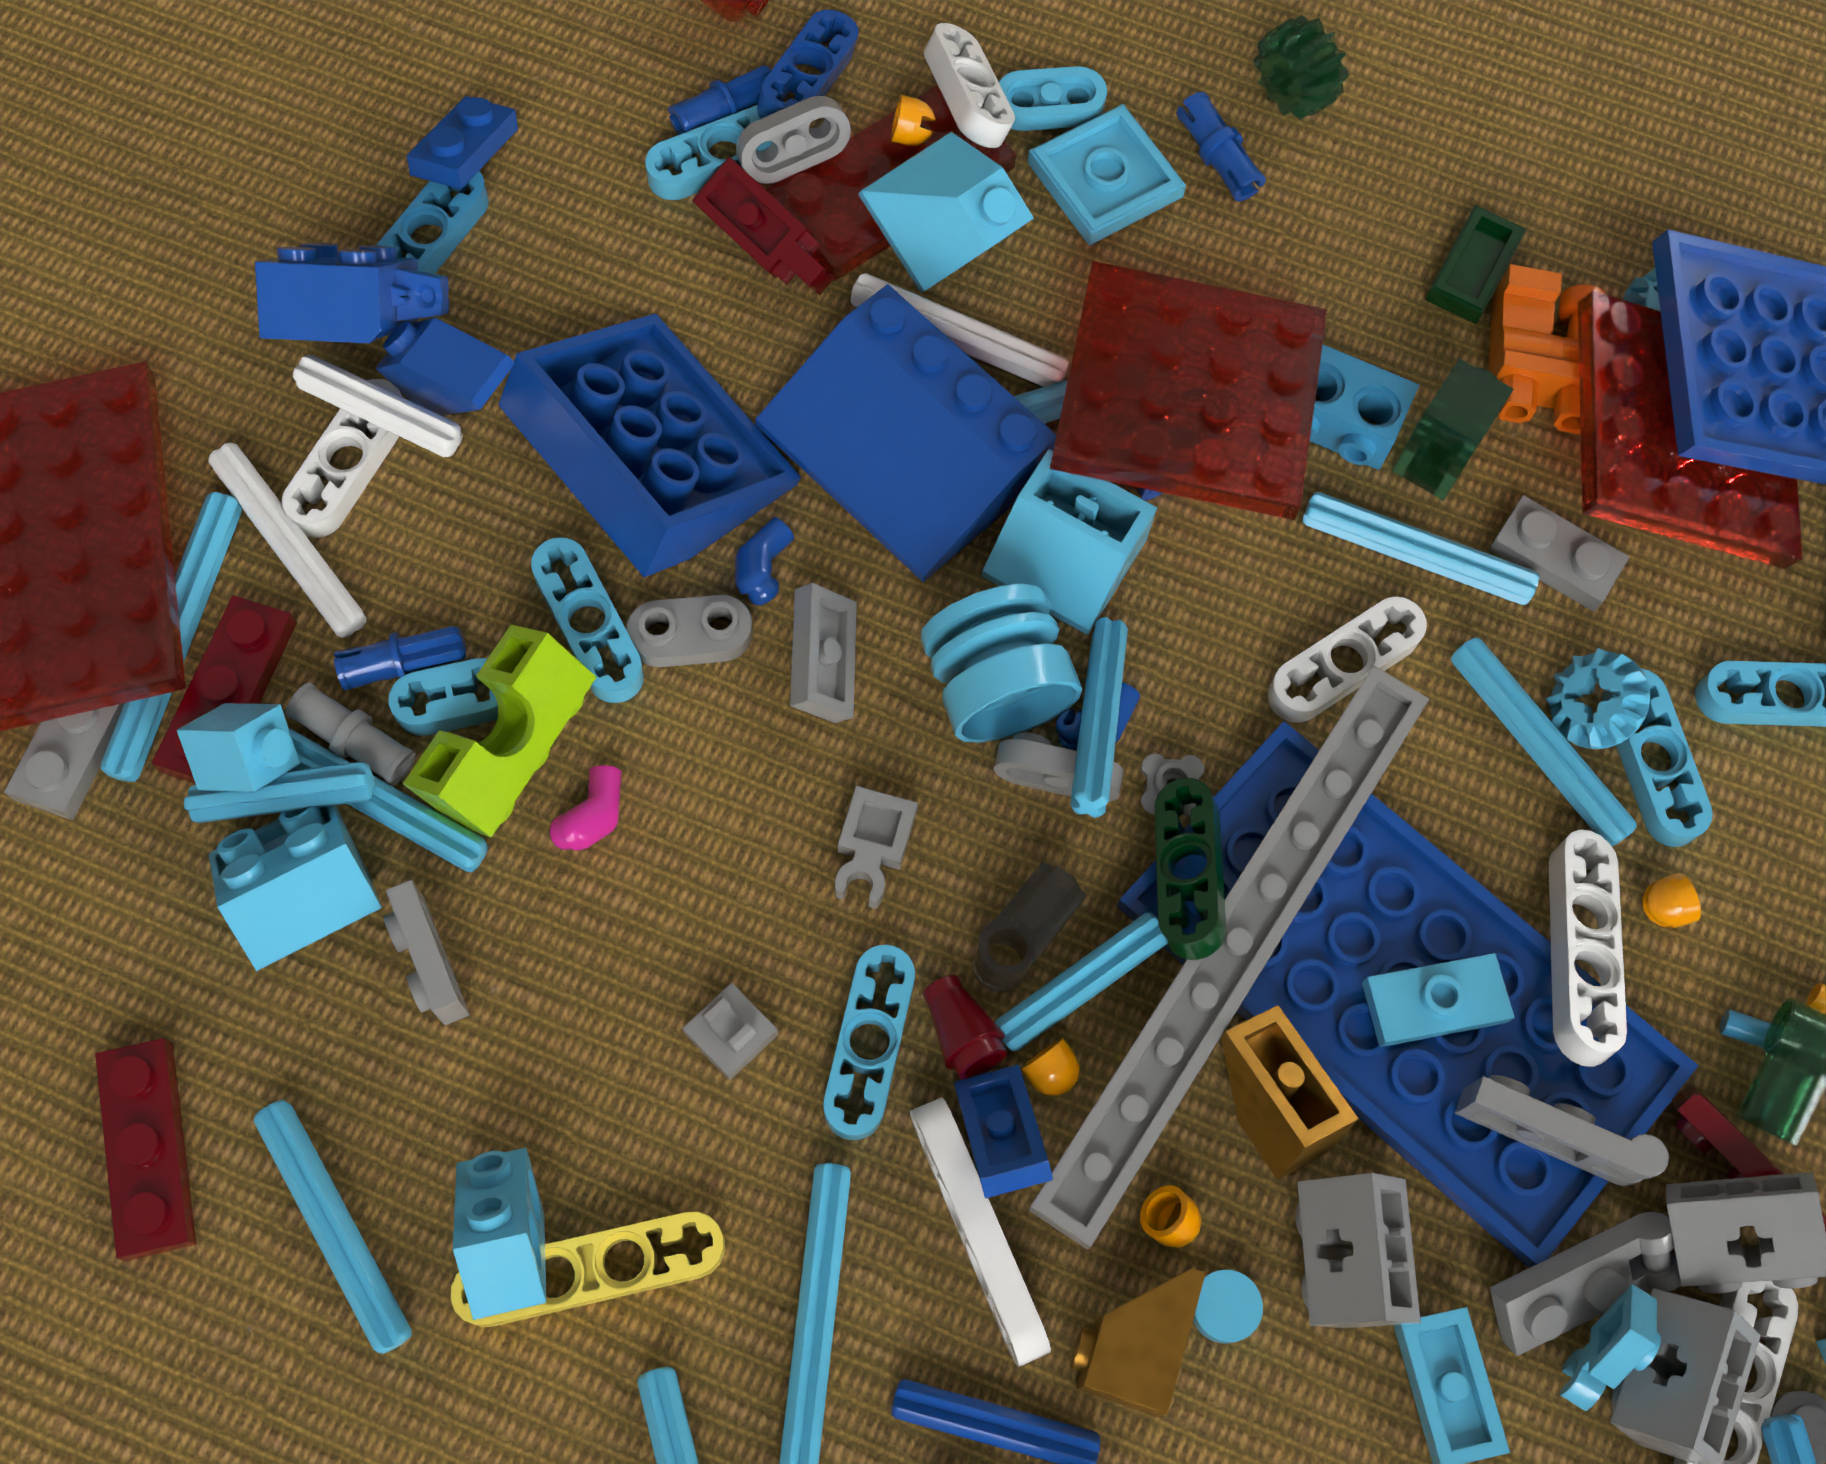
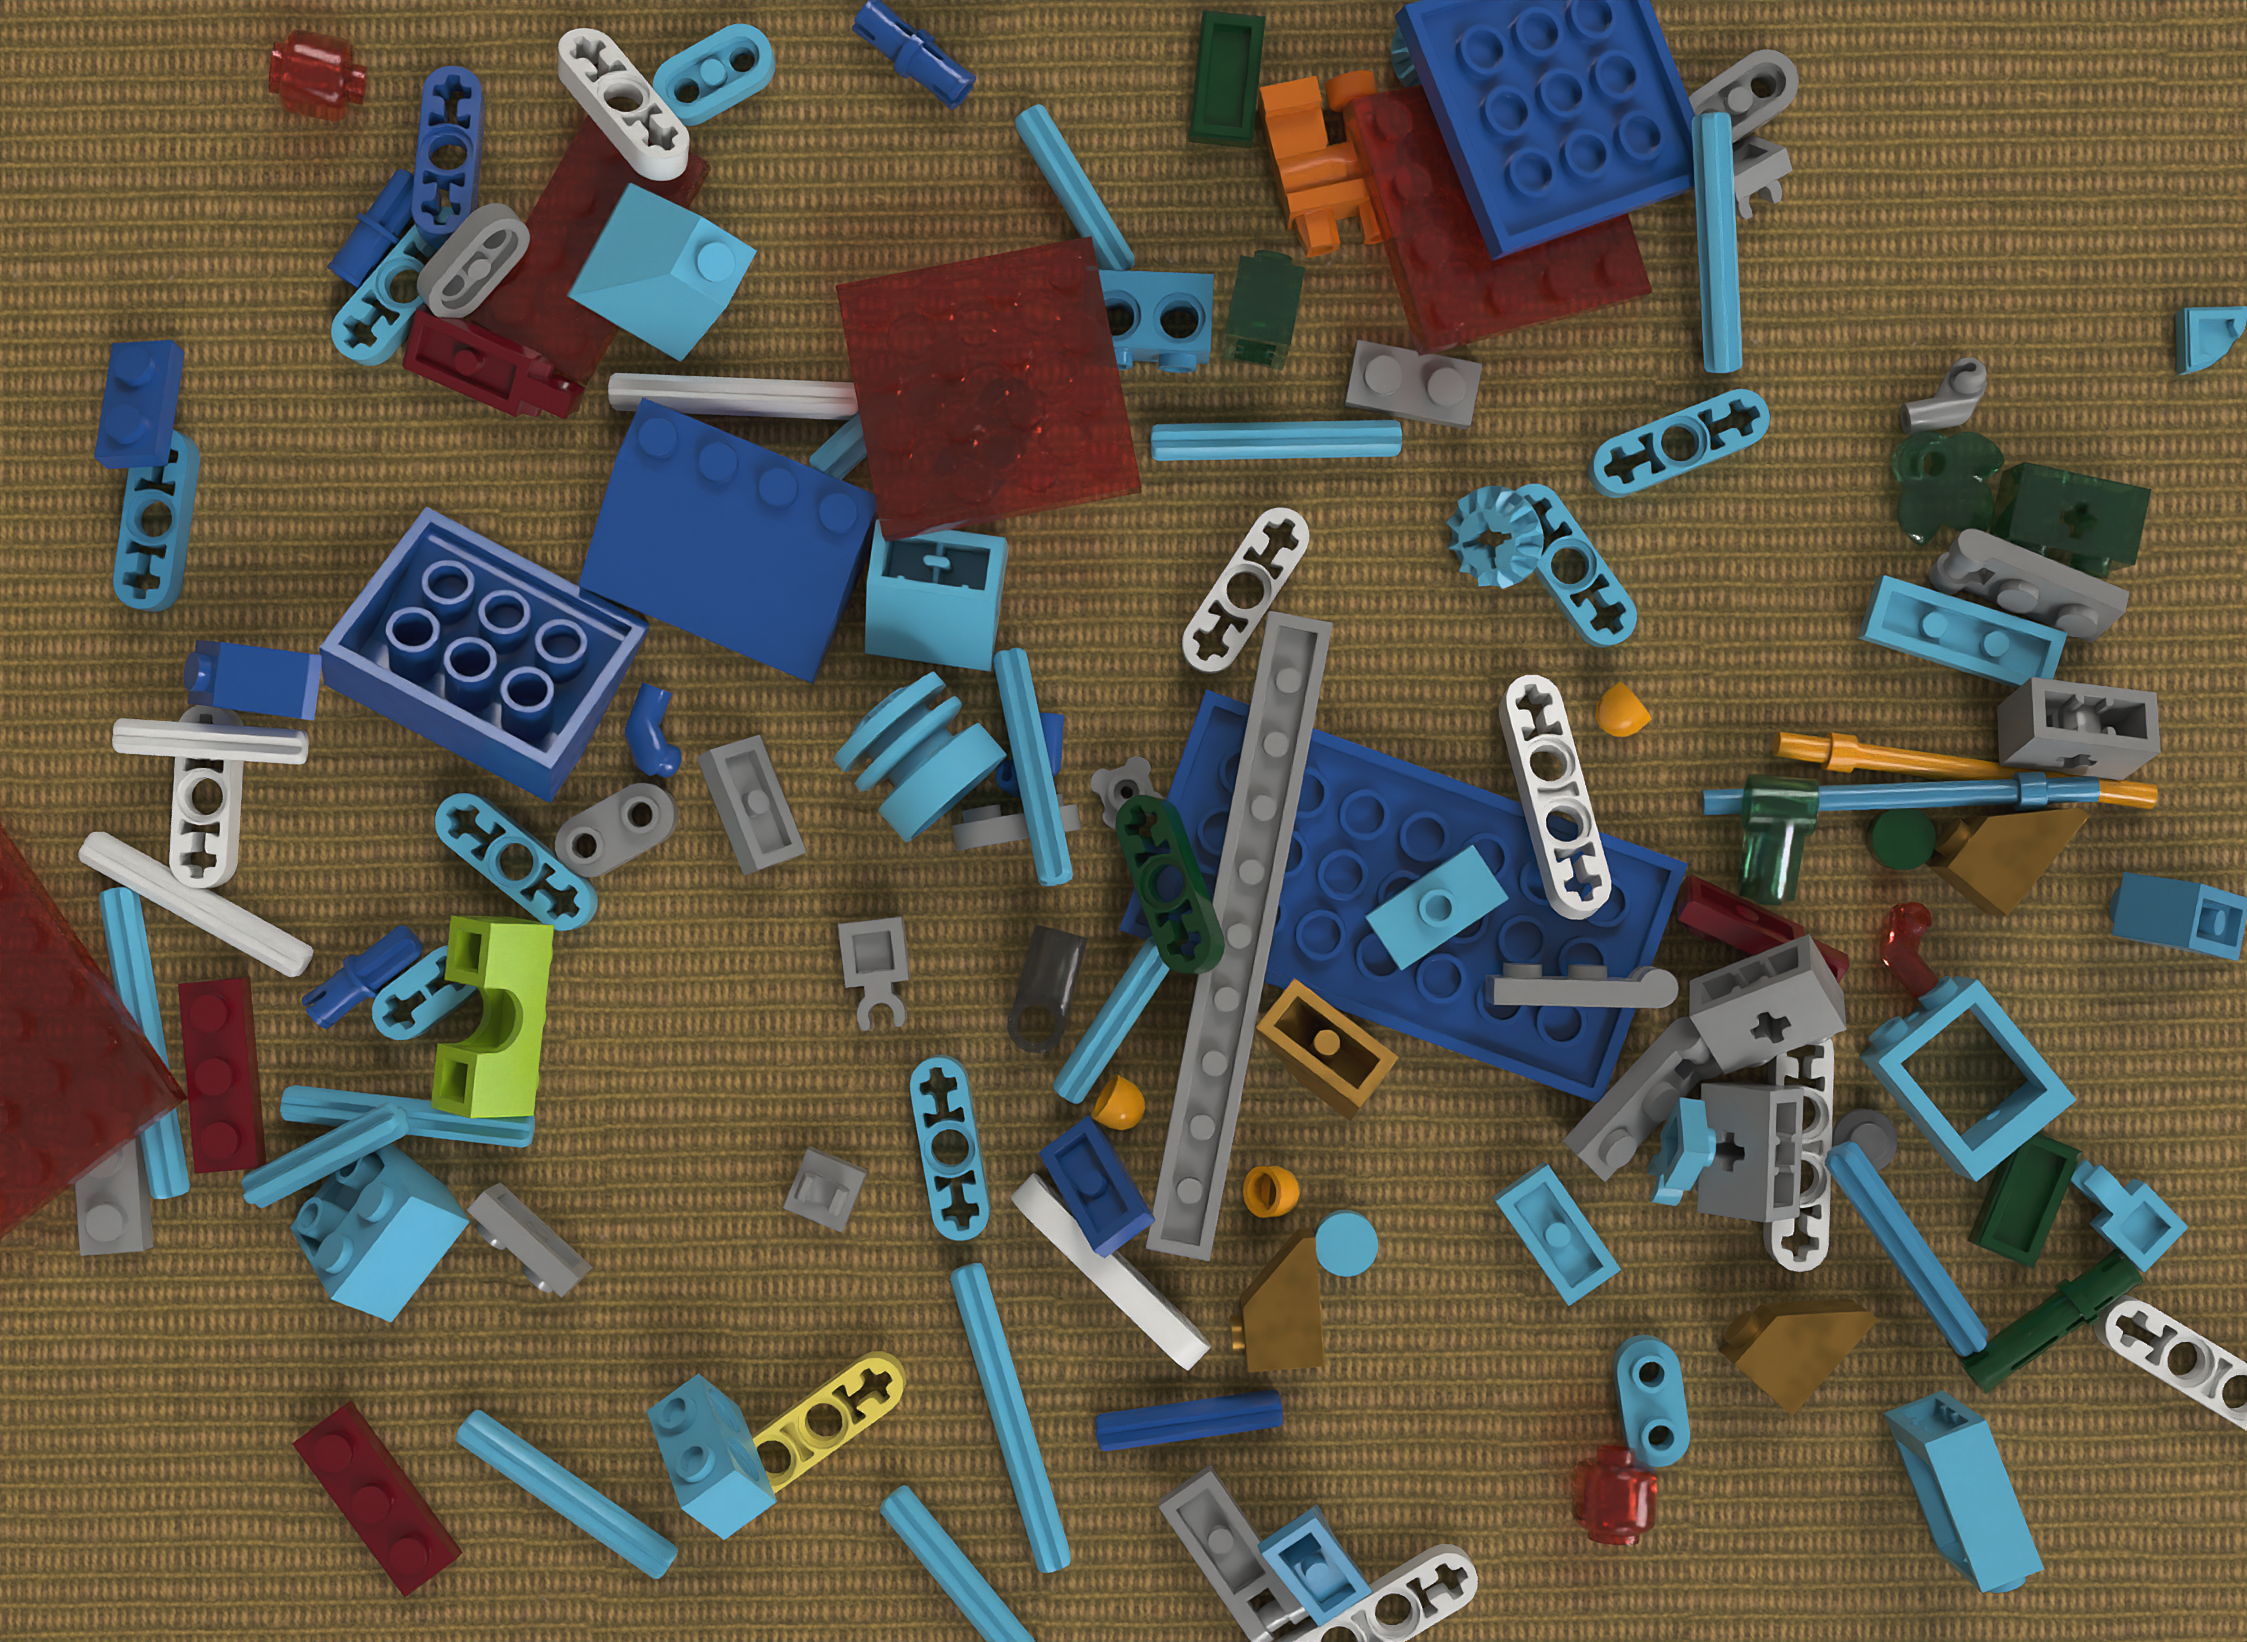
camera: 15 degrees left, 20 degrees up
(238, 747) = (267, 1137): medium azure brick -> none
(343, 293) = (117, 649): blue hinge -> none
(350, 733) = (357, 1069): light grey pin -> none
(592, 818) = (615, 1049): dark pink arm -> none
(908, 119) = (578, 181): light orange hinge -> none
(964, 1030) = (1027, 1104): dark red cone -> none
(1106, 174) = (808, 142): medium azure plate -> none
(1311, 275) = (1073, 188): none -> medium azure axle
(1380, 1278) = (1439, 1160): light grey brick -> none
(1543, 741) = (1456, 596): medium azure axle -> none

